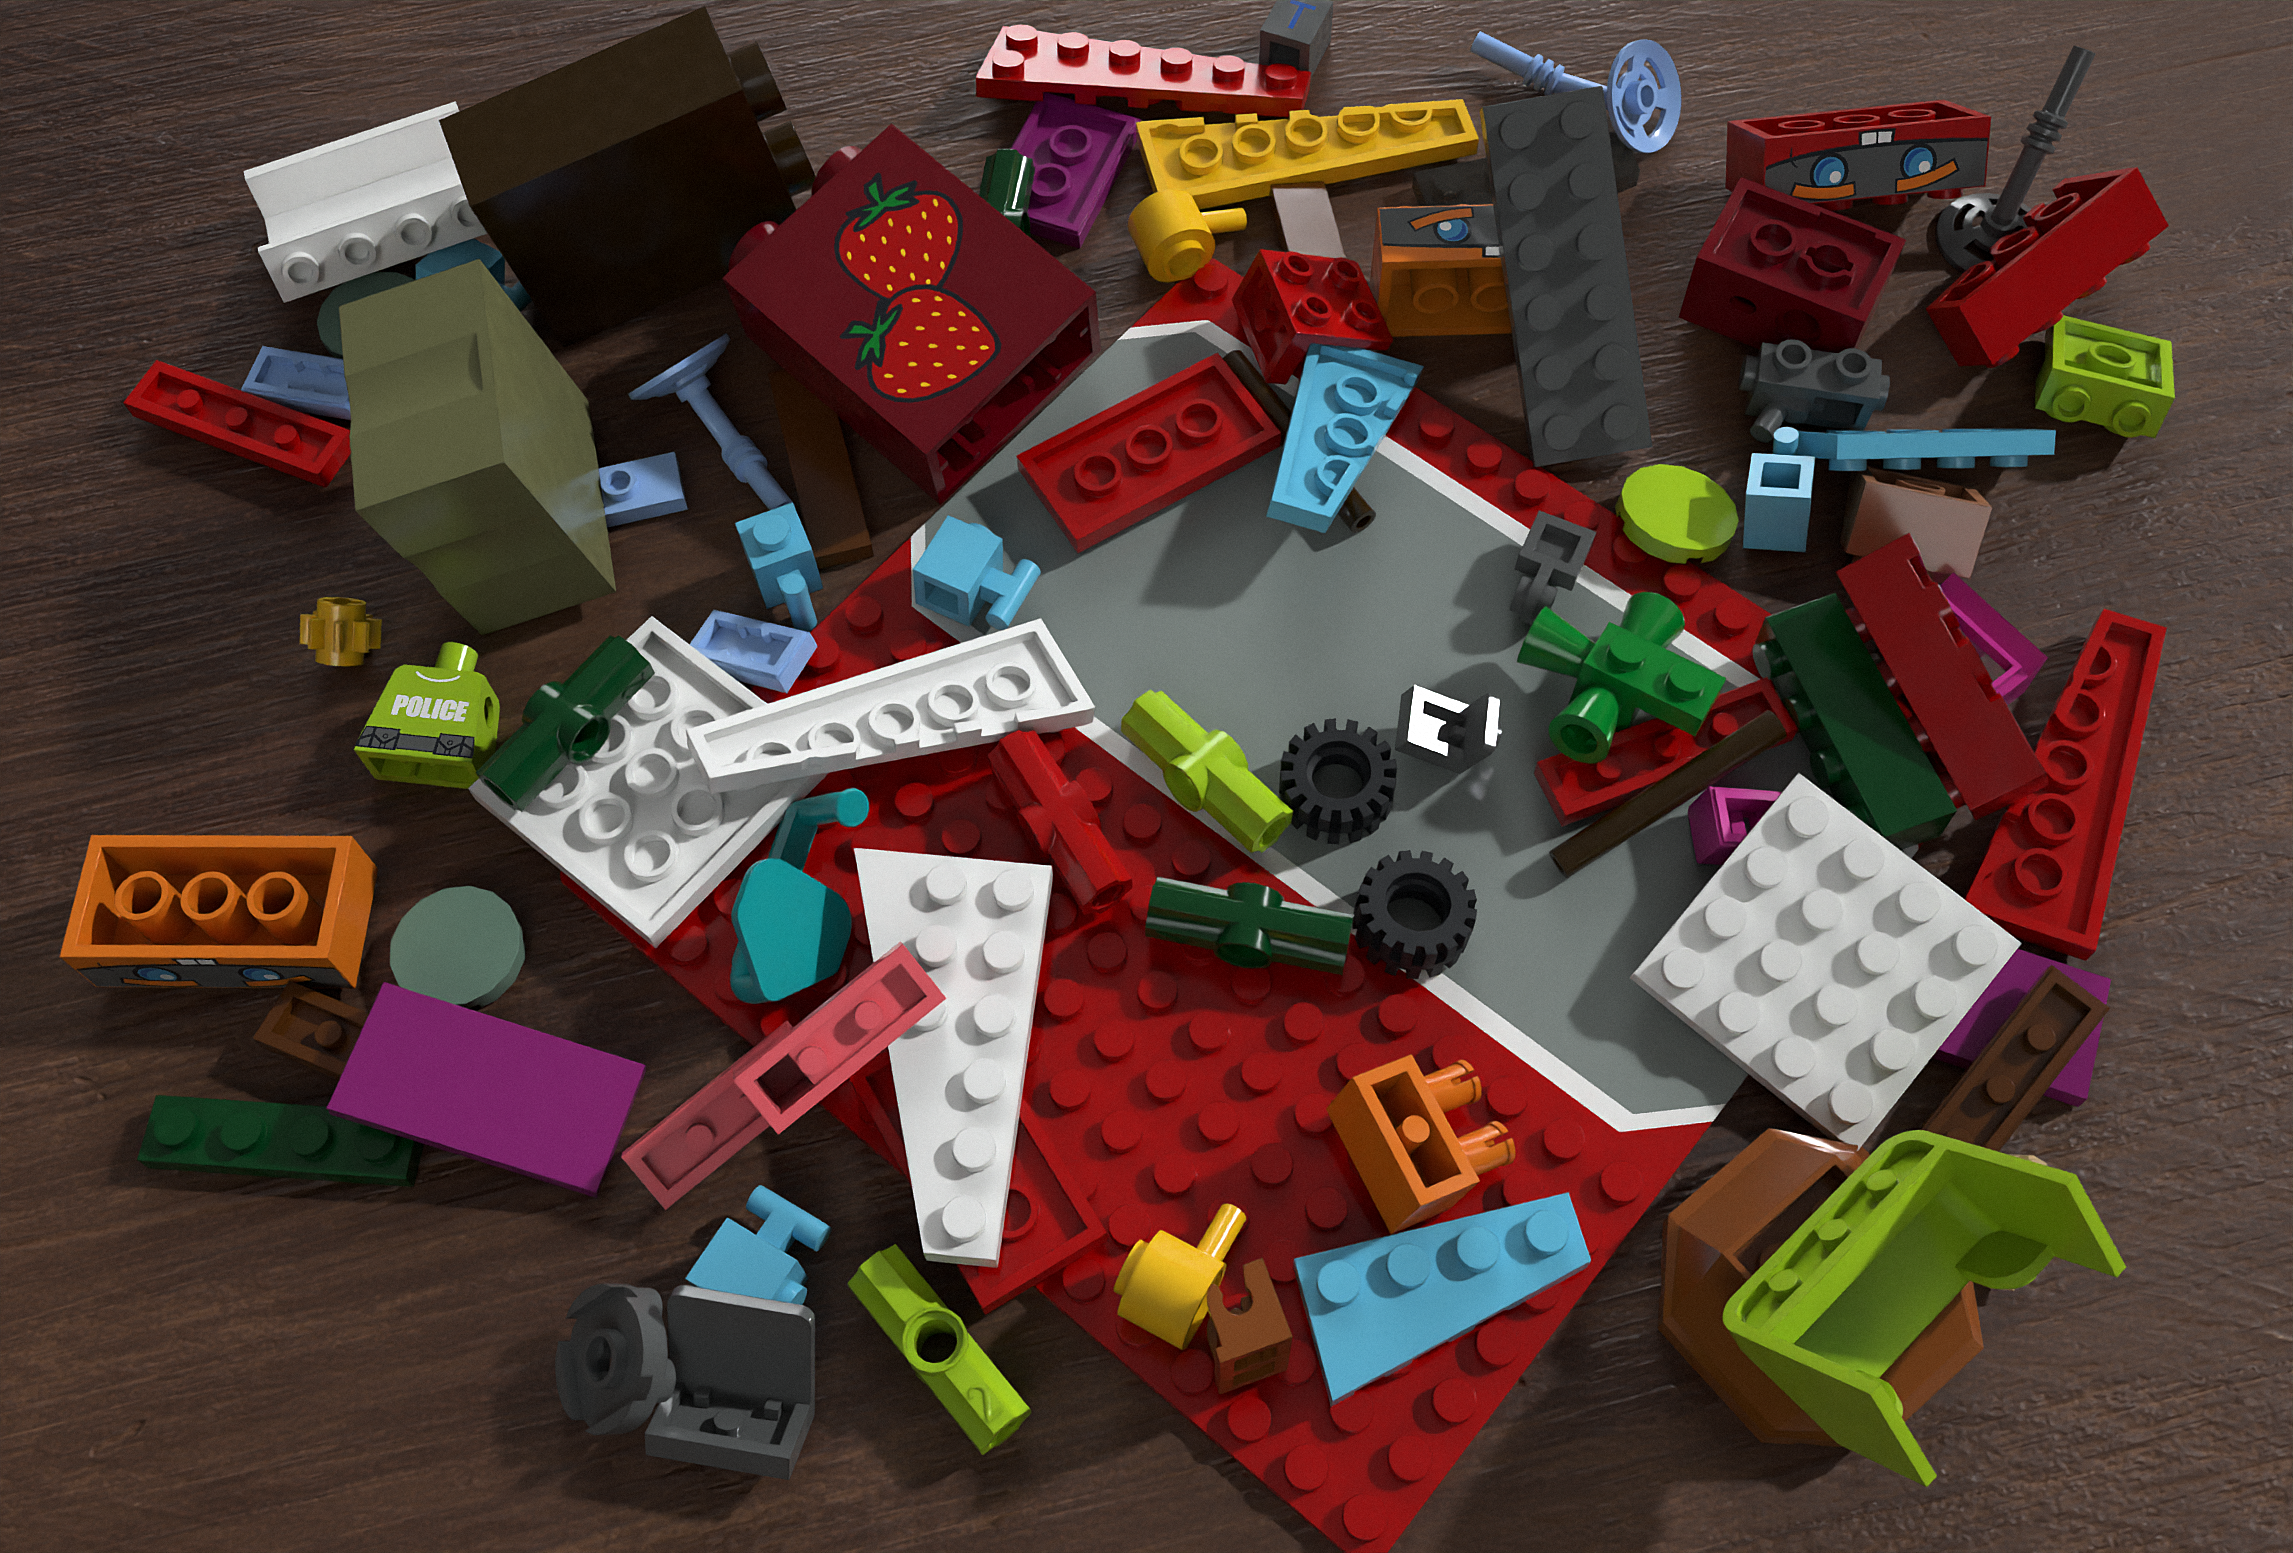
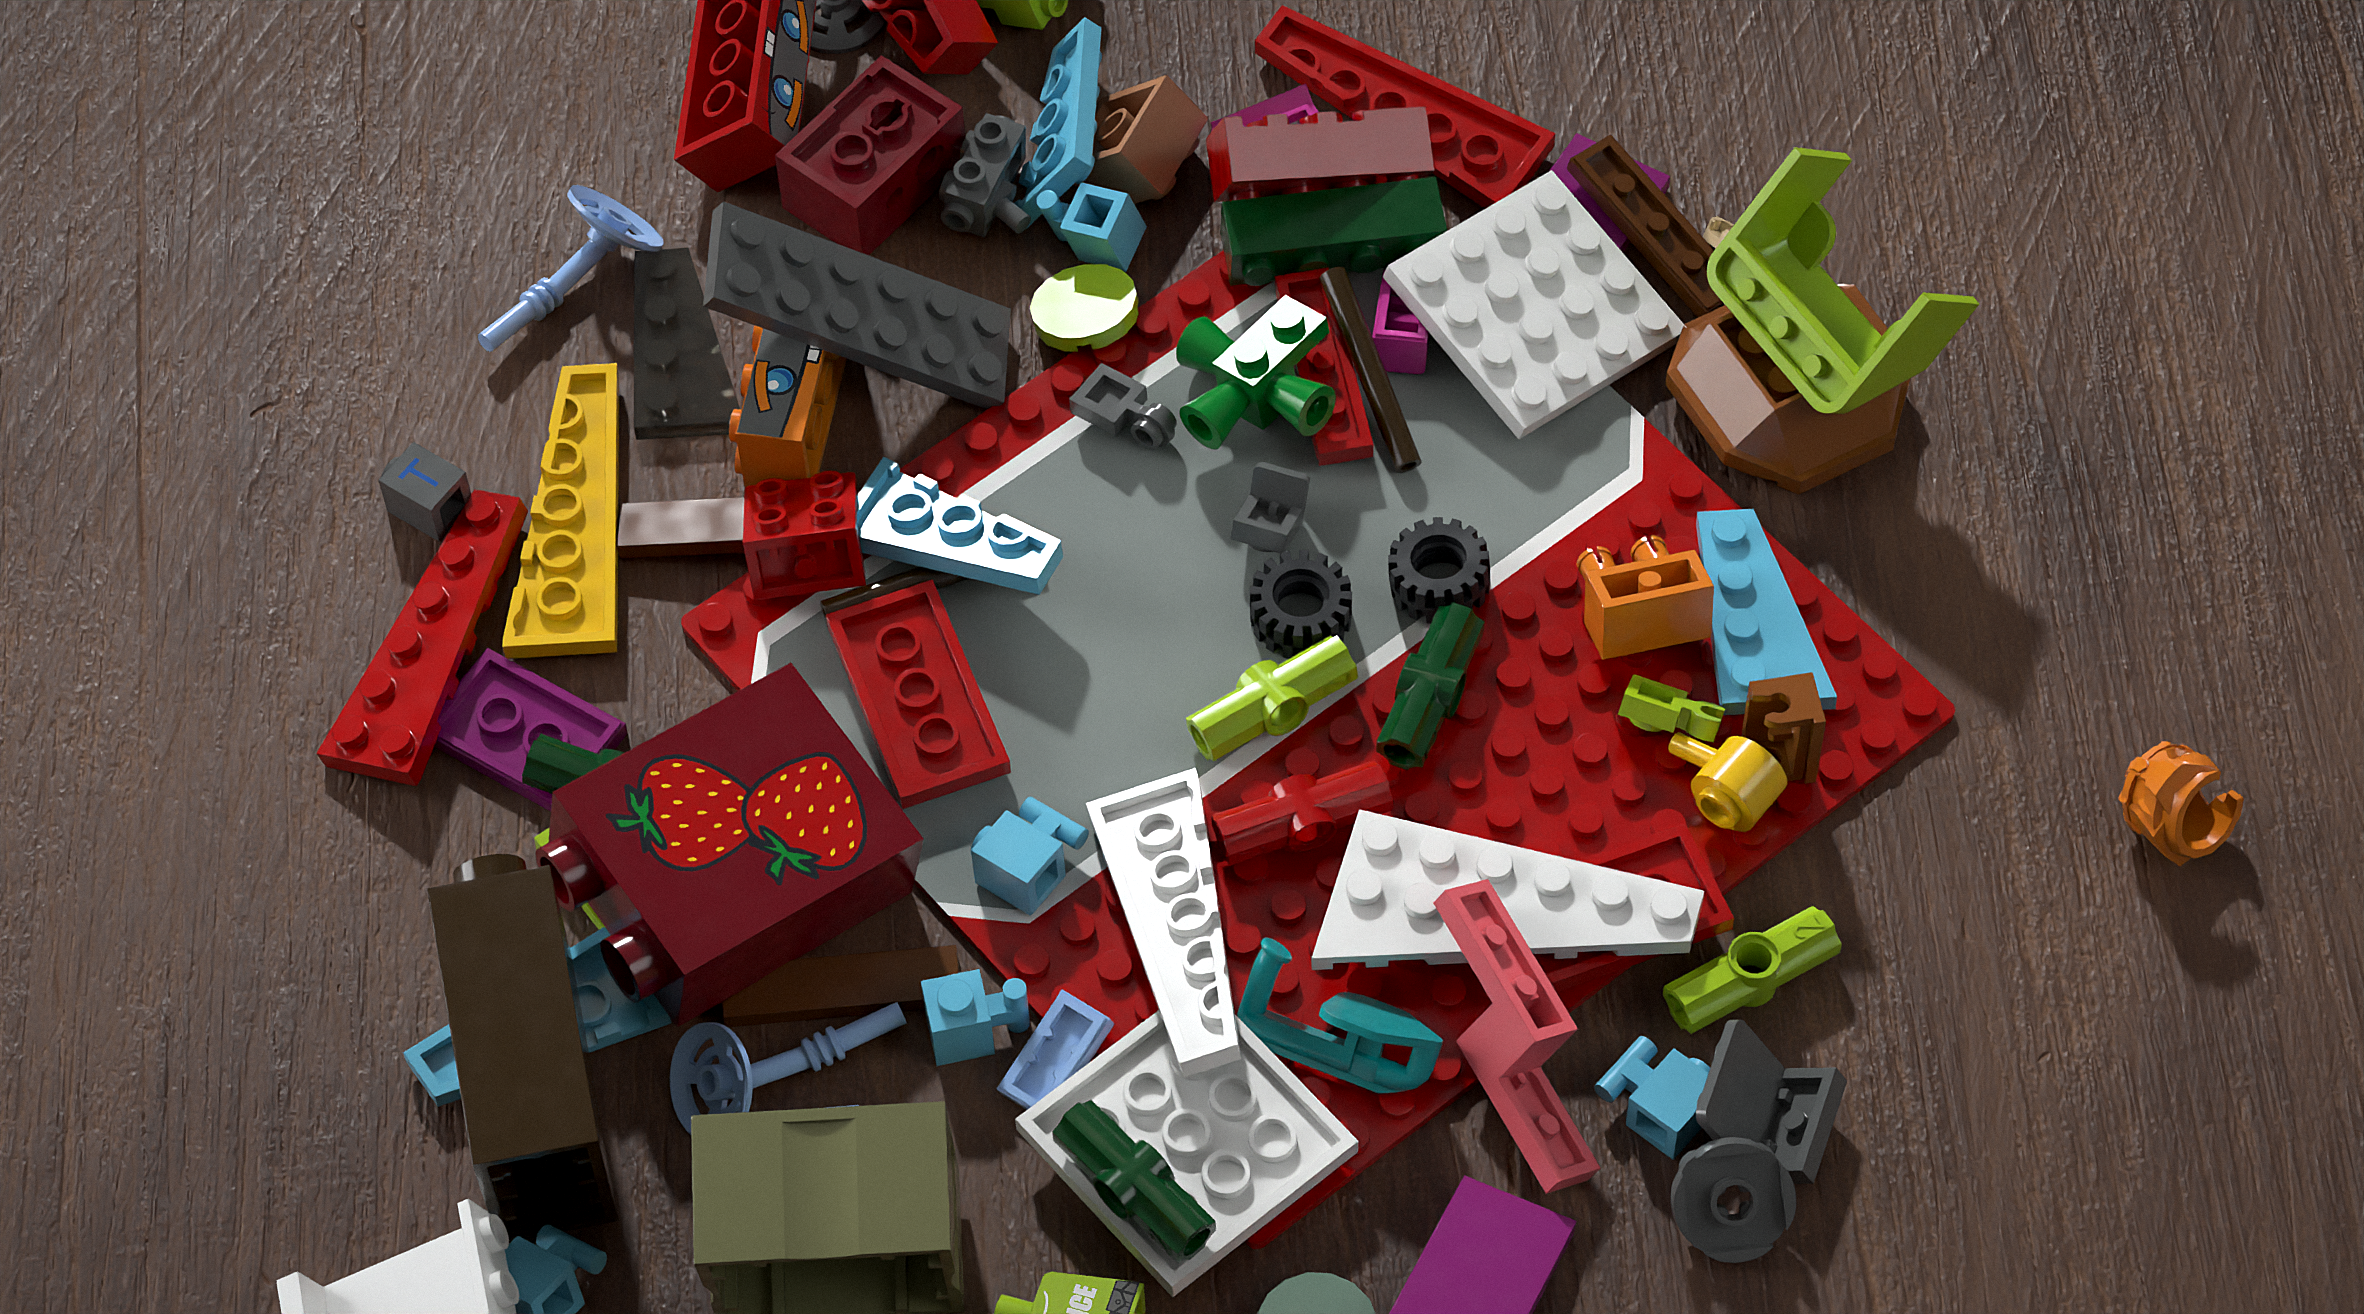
camera: 80 degrees left, 5 degrees down
(1177, 236) = (662, 631): yellow piece -> none
(1275, 1187) = (1663, 707): none -> lime plate

